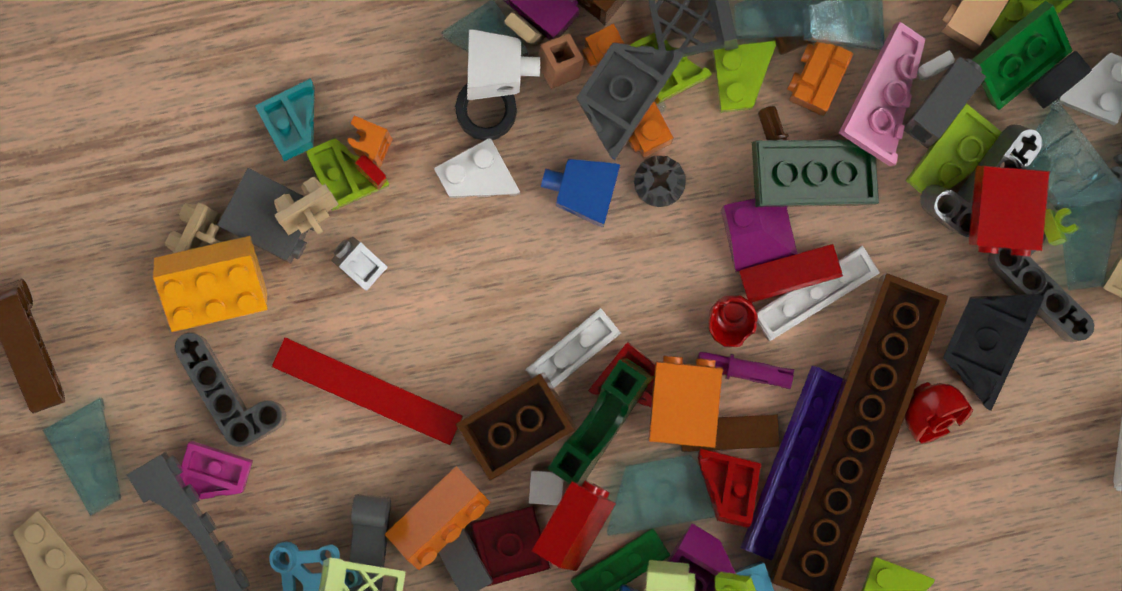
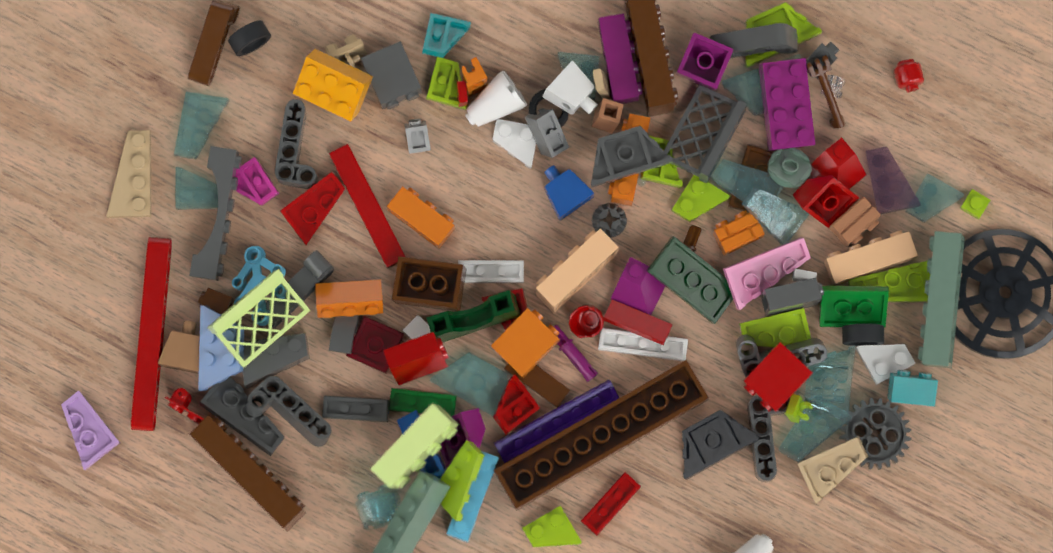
camera: 40 degrees right, 5 degrees down
(66, 307) = (249, 38): none -> black tyre
(150, 539) = (194, 191): none -> clear light blue wing
(304, 445) = (311, 208): none -> red wing
(308, 210) = (412, 86): tan hips -> none
(417, 148) = (495, 101): none -> white cone
(441, 353) = (421, 216): none -> orange brick
(508, 137) = (547, 132): none -> hinge
(675, 270) = (576, 271): none -> light nougat brick
(929, 507) = (610, 503): none -> red tile
(934, 410) = (654, 454): red cylinder -> none

